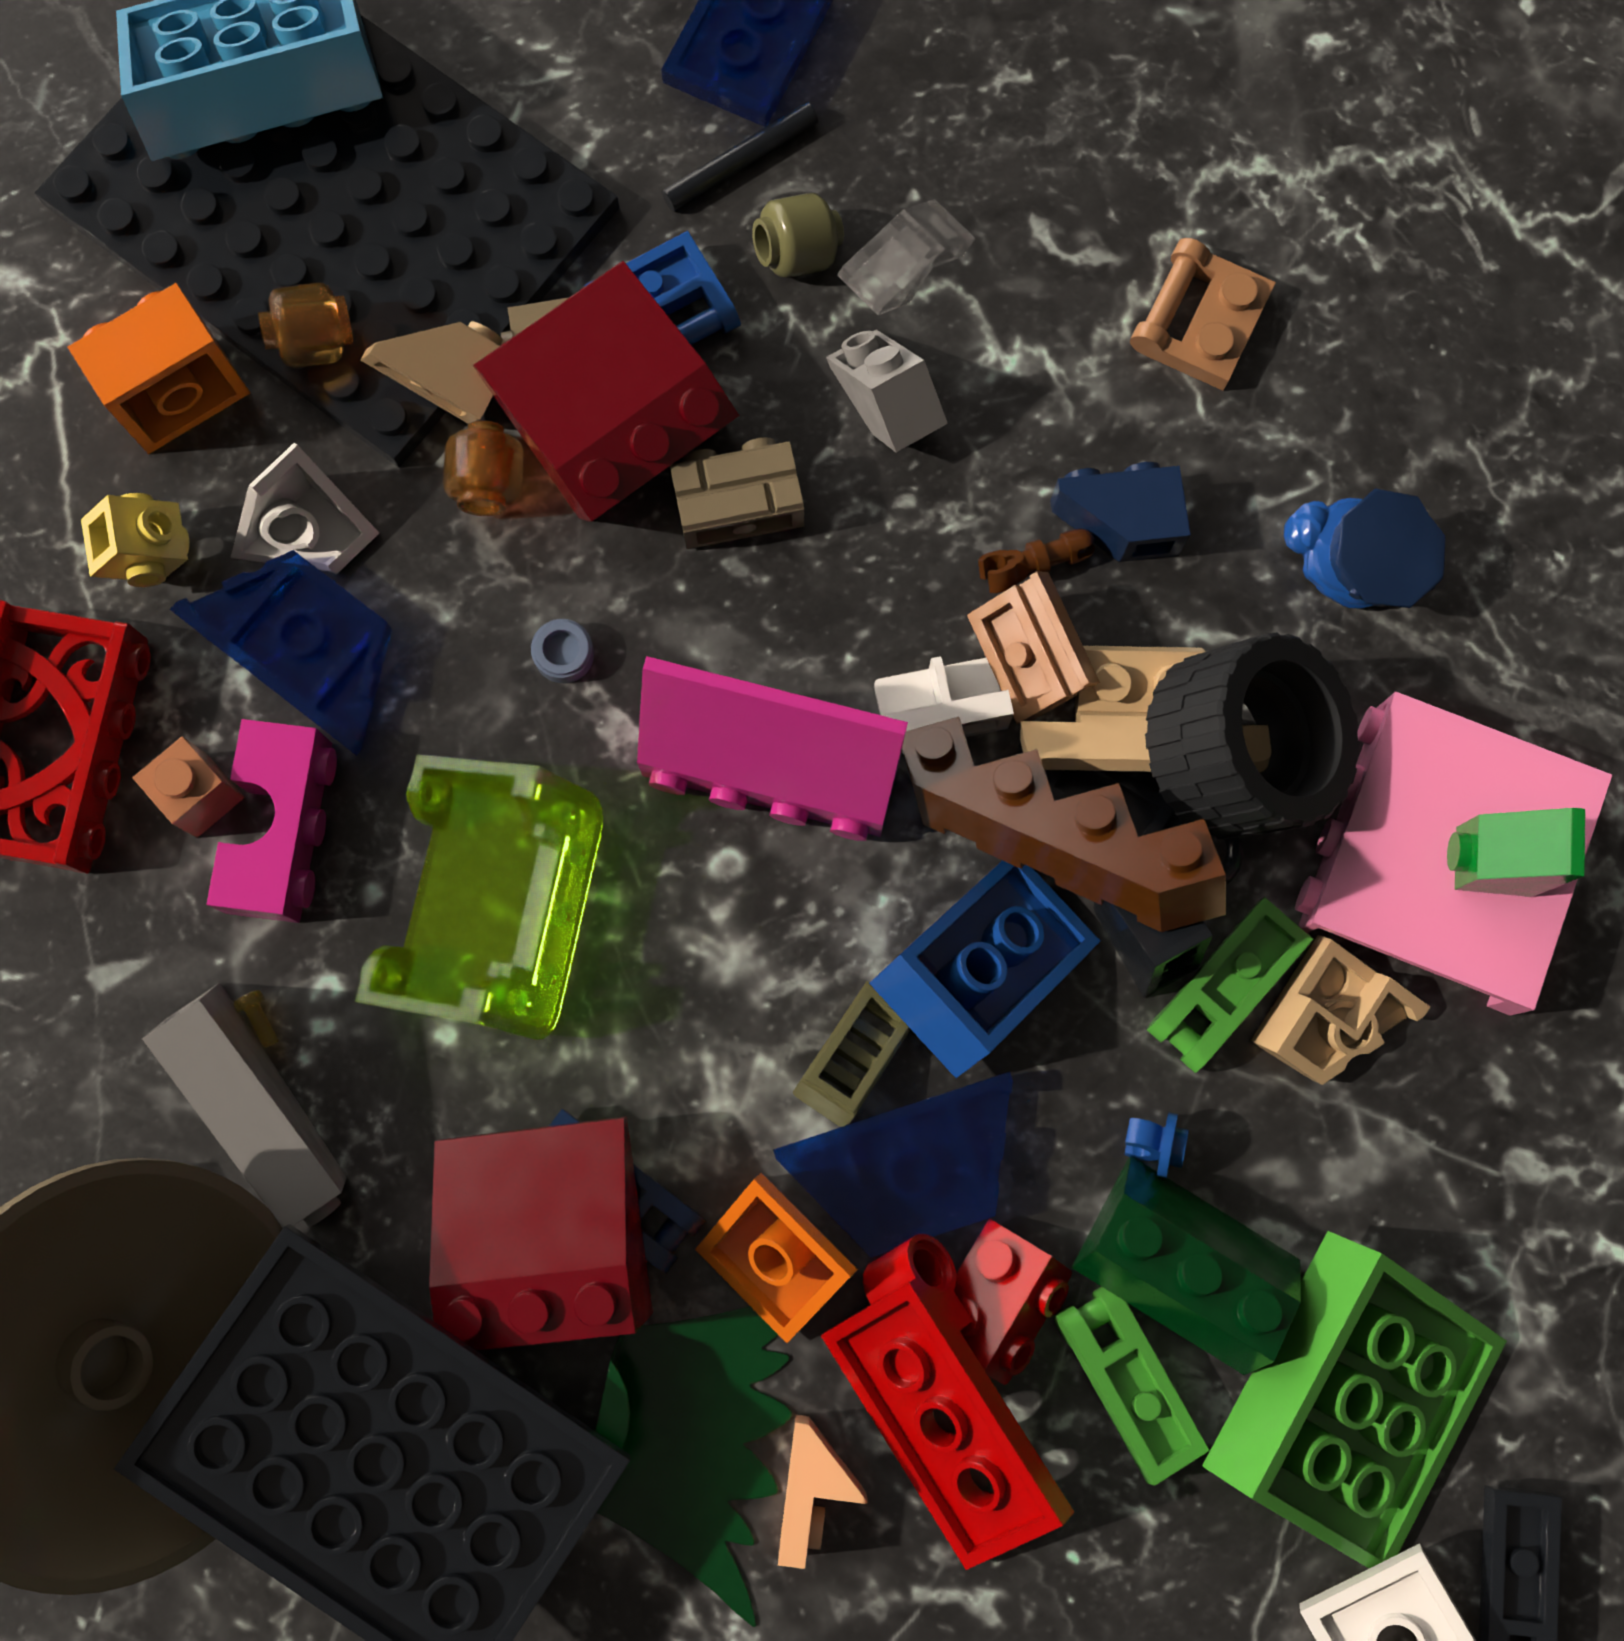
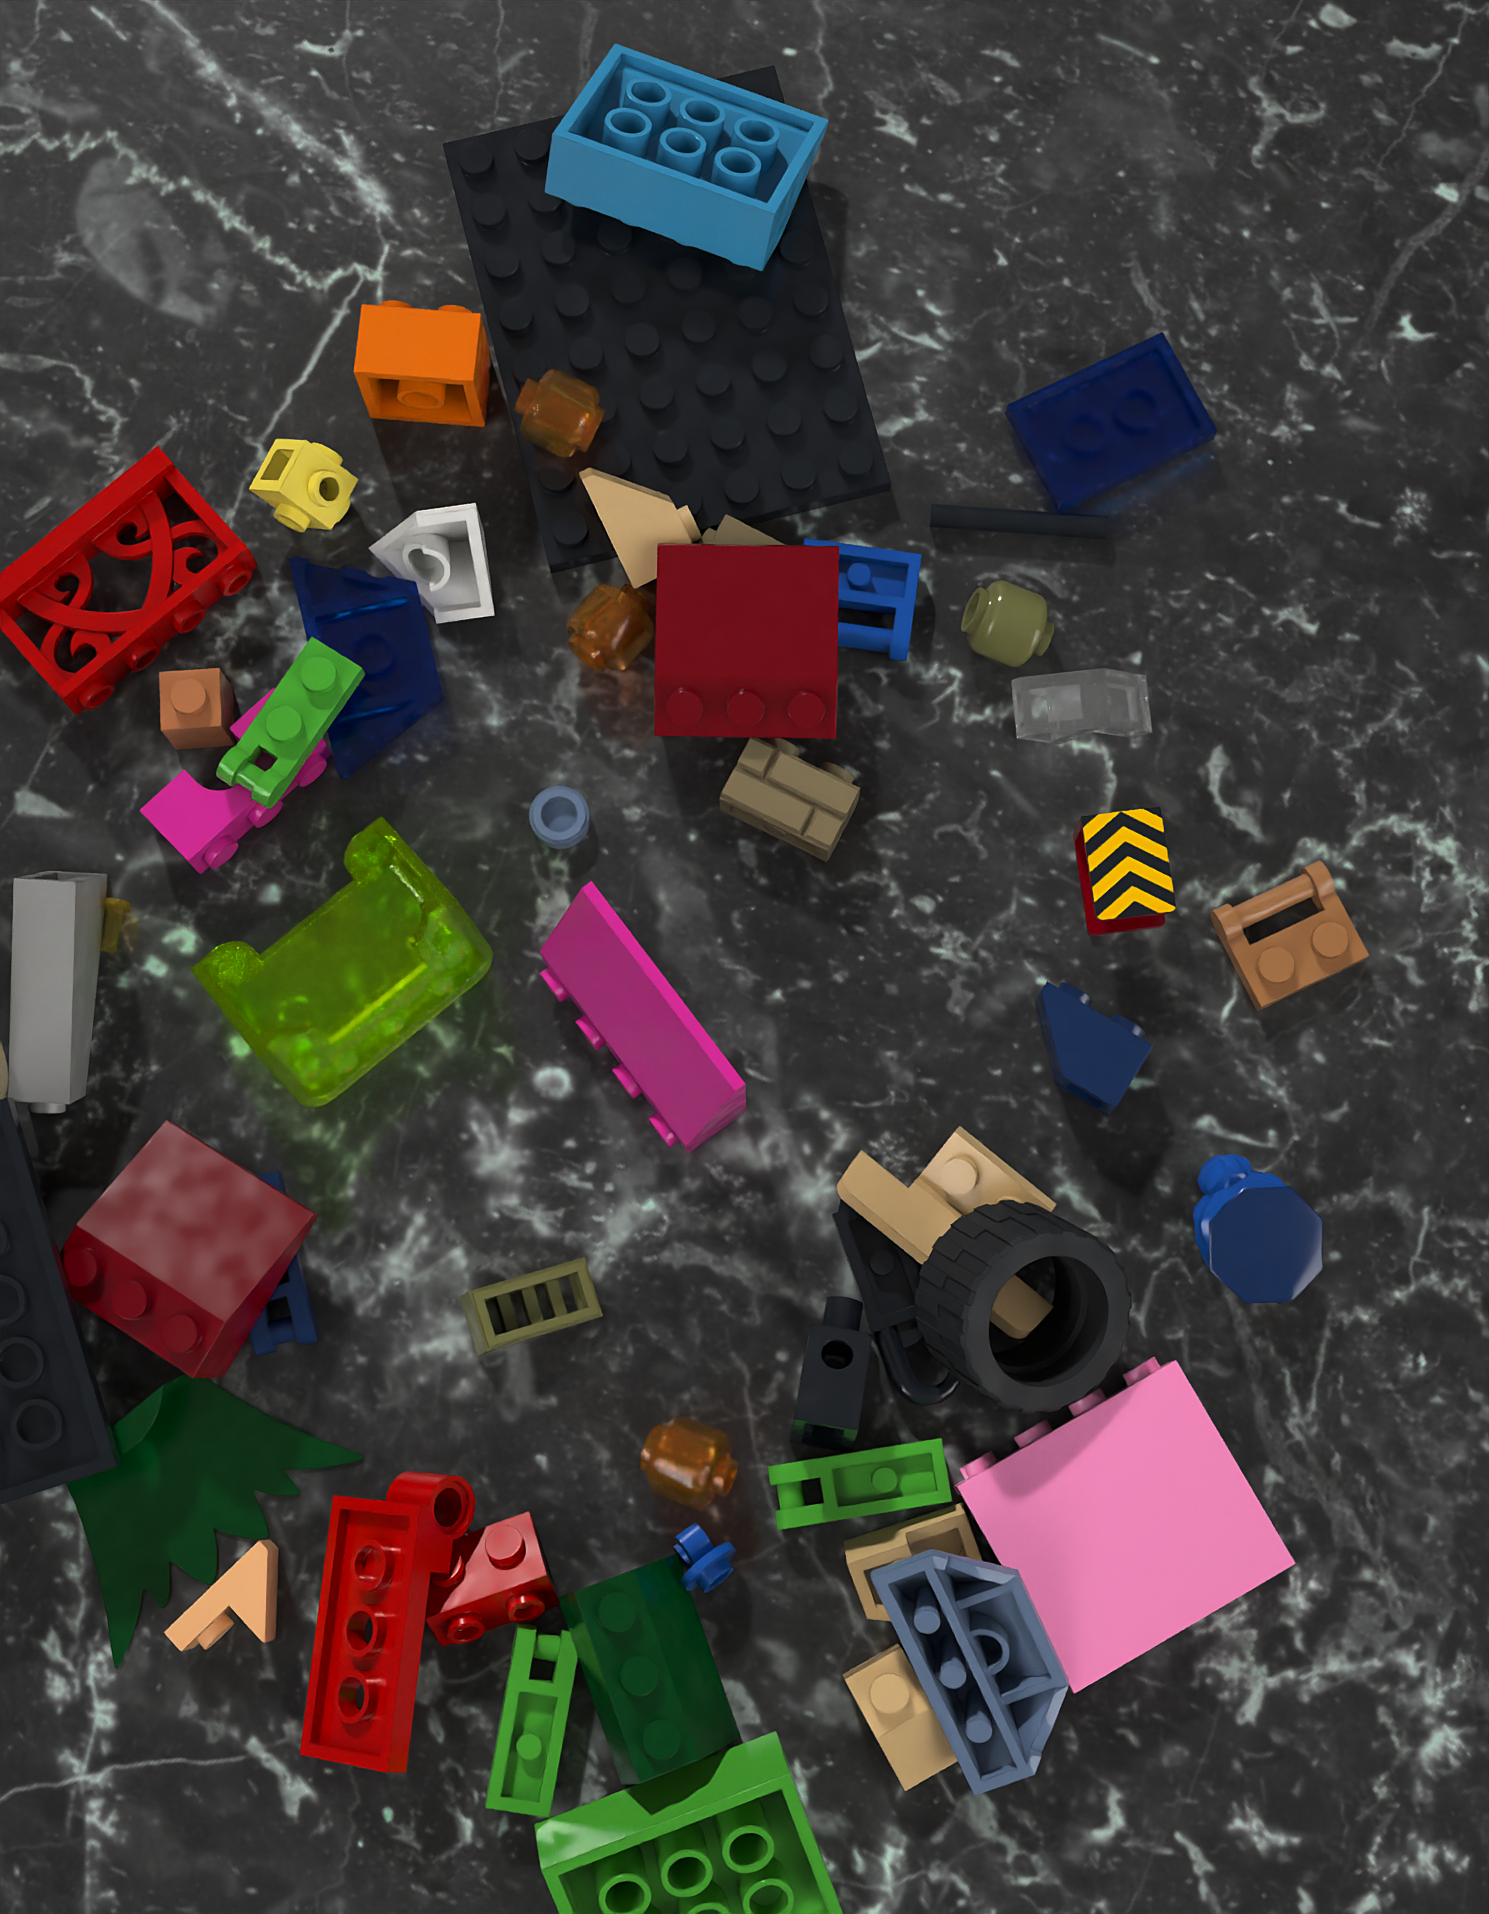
camera: 40 degrees right, 0 degrees up
(280, 733) = (291, 722): none -> bright green plate
(775, 1258) = (348, 1409): orange slope -> none
(888, 388) = (977, 803): light grey slope -> none
(909, 1167) = (500, 1424): clear blue wing -> none
(945, 693) = (817, 1086): white panel -> none
(985, 965) = (684, 1315): blue slope -> none
(1010, 567) = (956, 1020): reddish brown piece -> none
(1033, 647) = (920, 1099): plate -> none
(1043, 354) = (1123, 871): none -> piece
(1077, 840) = (817, 1276): reddish brown brick -> none
(1085, 1075) = (688, 1462): none -> clear orange head
(1407, 1136) = (900, 1716): none -> tan slope
(1447, 1042) = (977, 1659): none -> sand blue wedge
(1518, 851) = (1148, 1555): slope -> none

